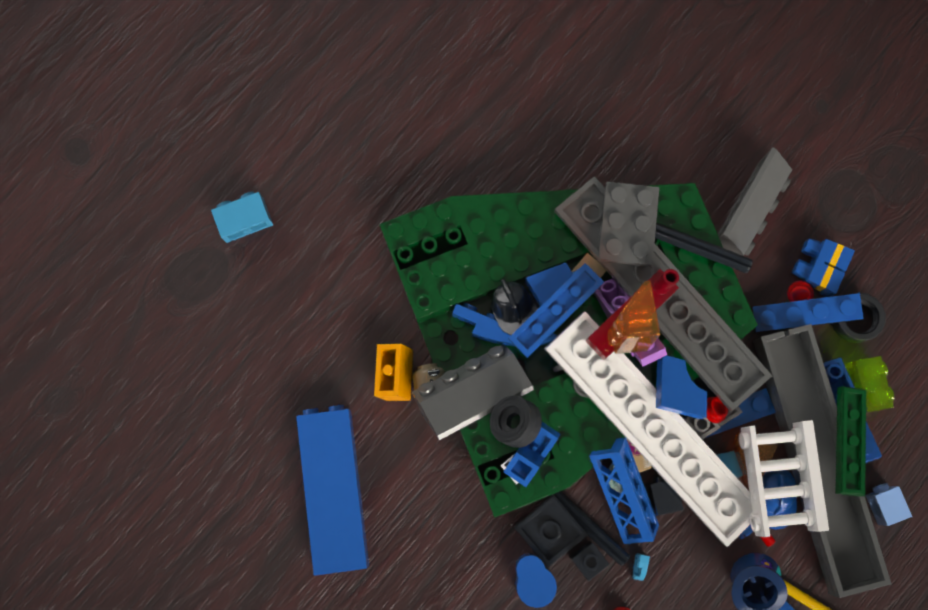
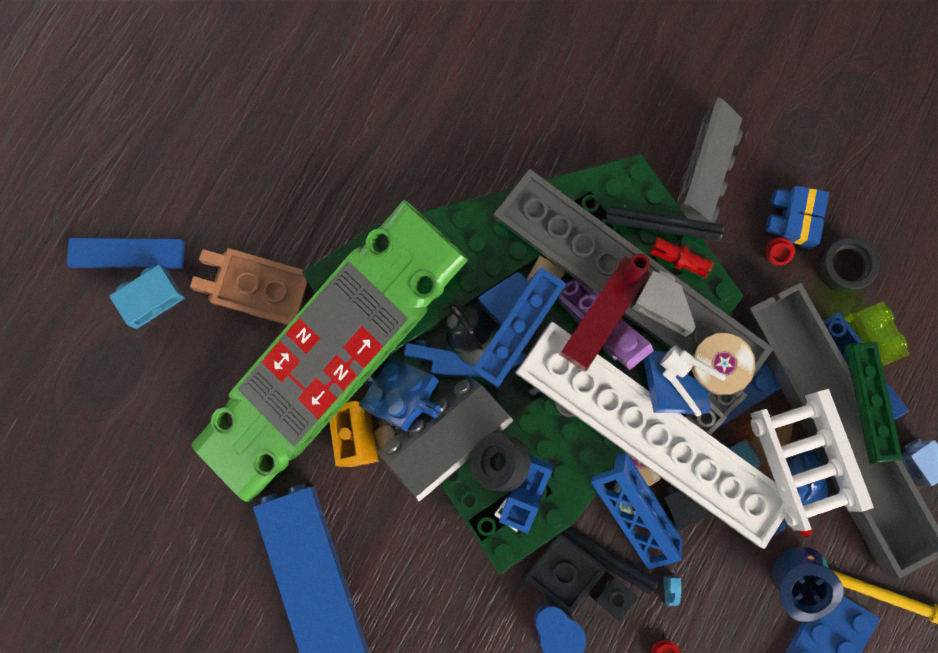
camera: 15 degrees left, 0 degrees up
(230, 175) = (125, 253): none -> blue tile
(334, 227) = (253, 285): none -> nougat tile
(388, 296) = (328, 351): none -> panel
(441, 346) = (400, 394): none -> blue plate
(628, 224) = (579, 214): dark grey plate -> none
(637, 323) = (614, 323): clear orange slope -> none
(686, 316) = (665, 303): none -> light grey slope
(687, 370) = (680, 363): none -> white plant
(709, 280) = (681, 257): none -> red pin
(716, 410) = (720, 403): red plate -> none
(725, 379) = (728, 356): none -> tan tile
(808, 312) = (794, 270): blue plate -> none

